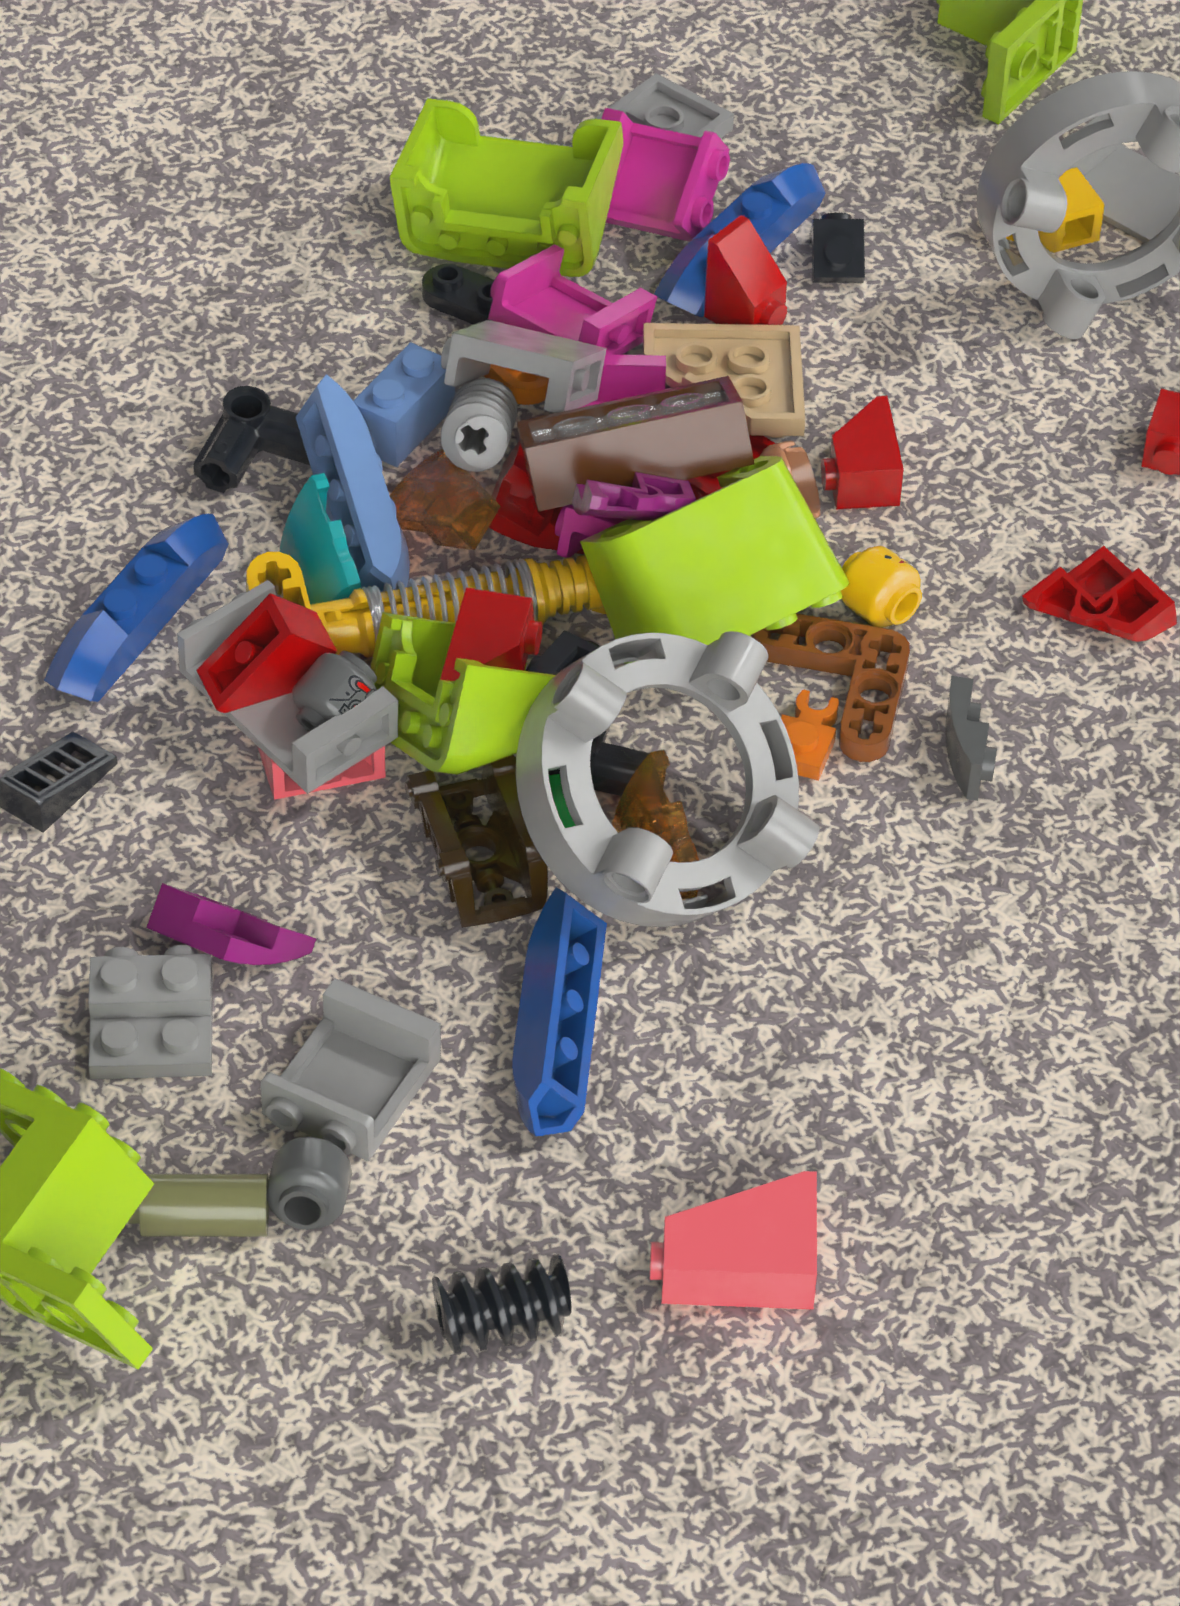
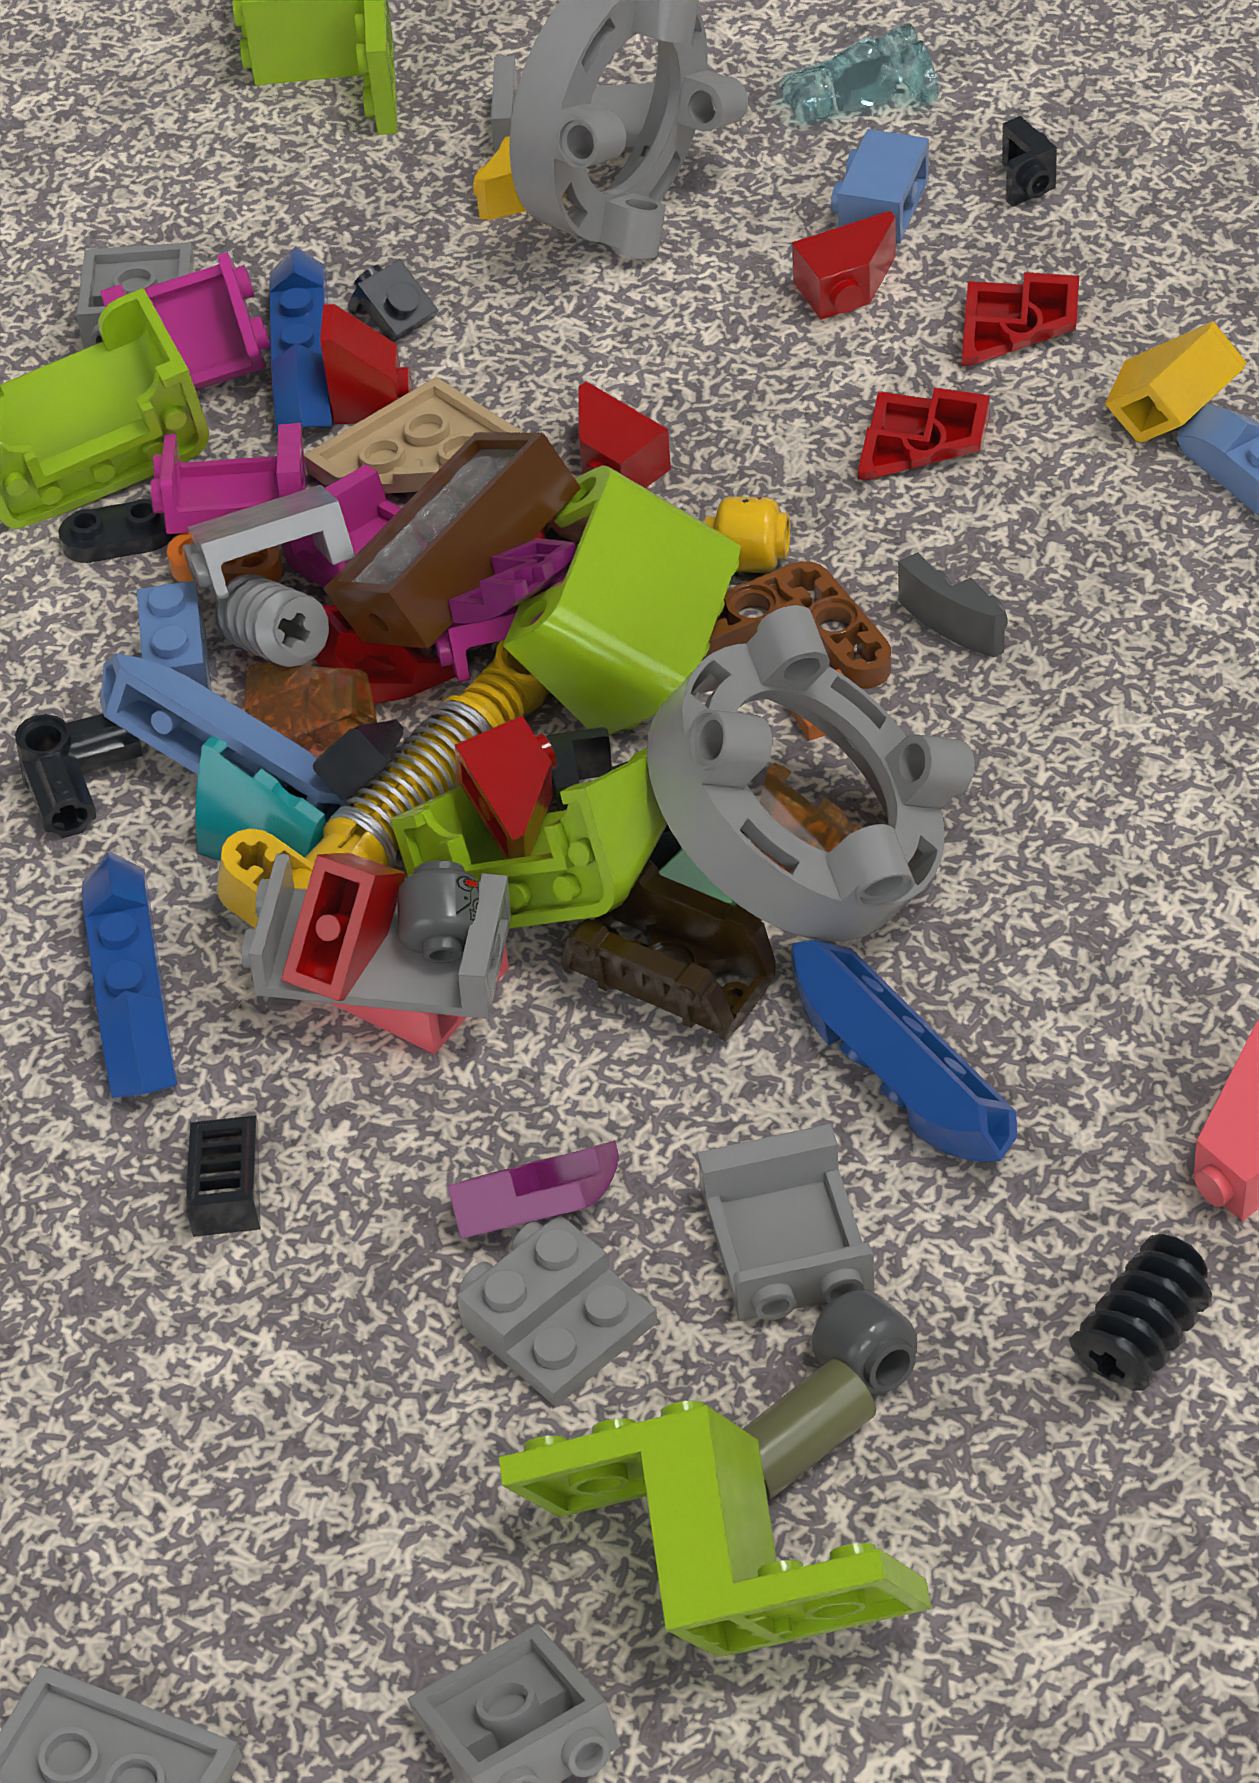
camera: 35 degrees left, 0 degrees up
(424, 554) = (358, 756): none -> black slope

